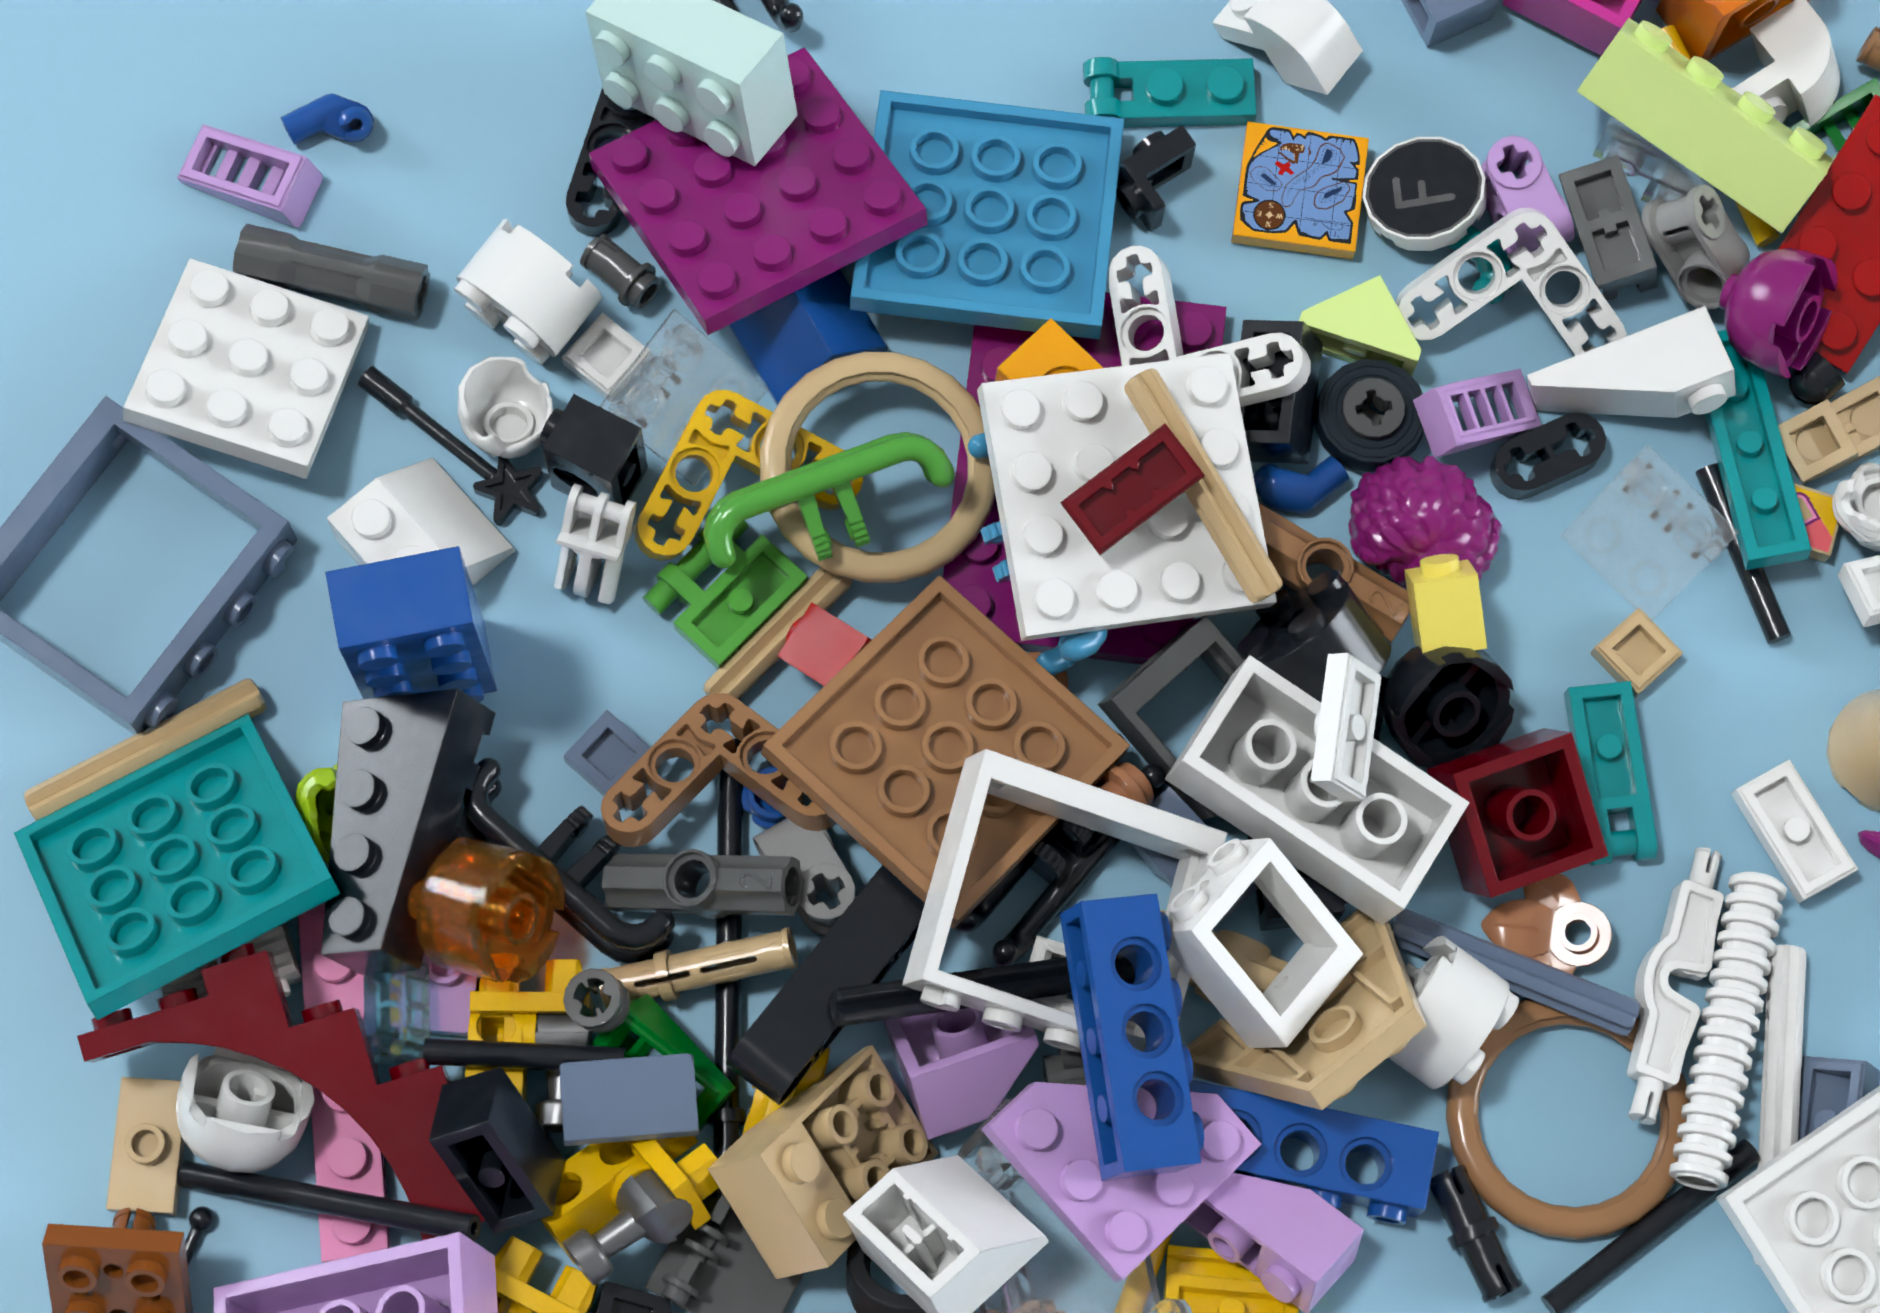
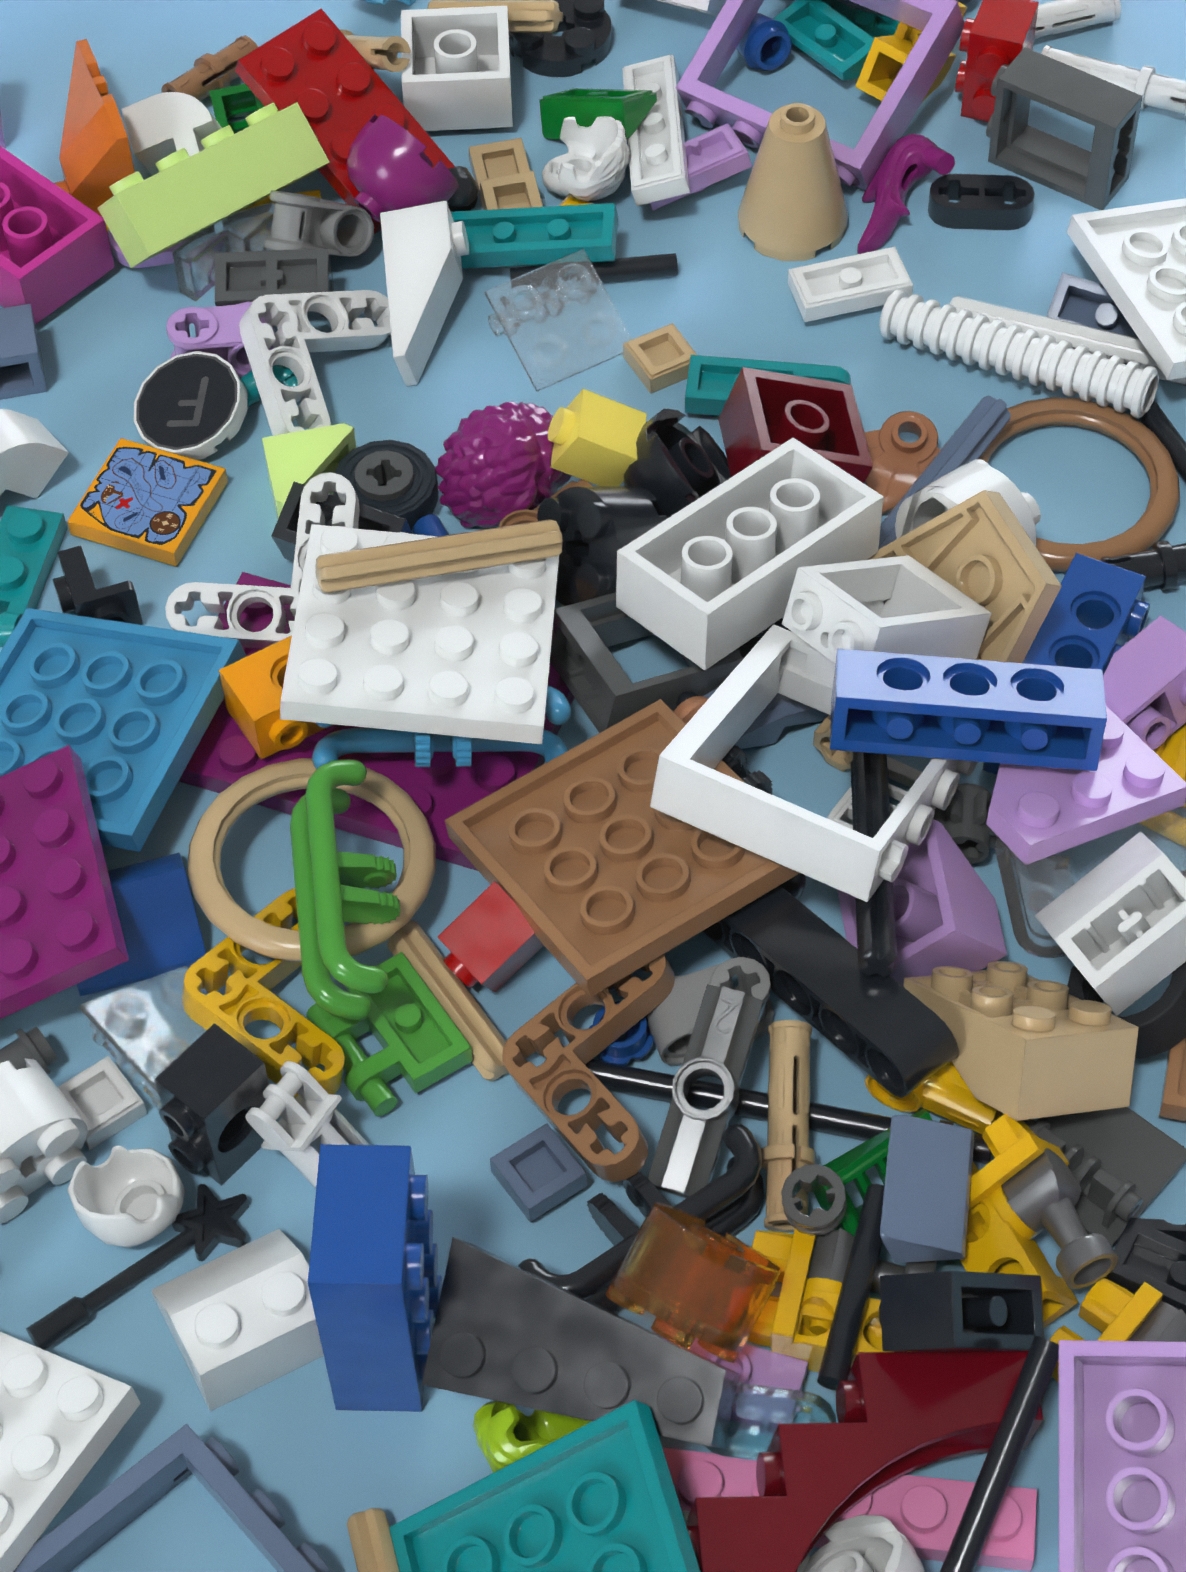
camera: 70 degrees left, 20 degrees down
(1132, 489) = (431, 598): dark red plate -> none
(1345, 727) = (708, 487): white plate -> none
(1442, 422) = (412, 411): lavender slope -> none
(1553, 468) = (454, 380): black beam -> none
(1665, 1015) = (942, 374): white piece -> none

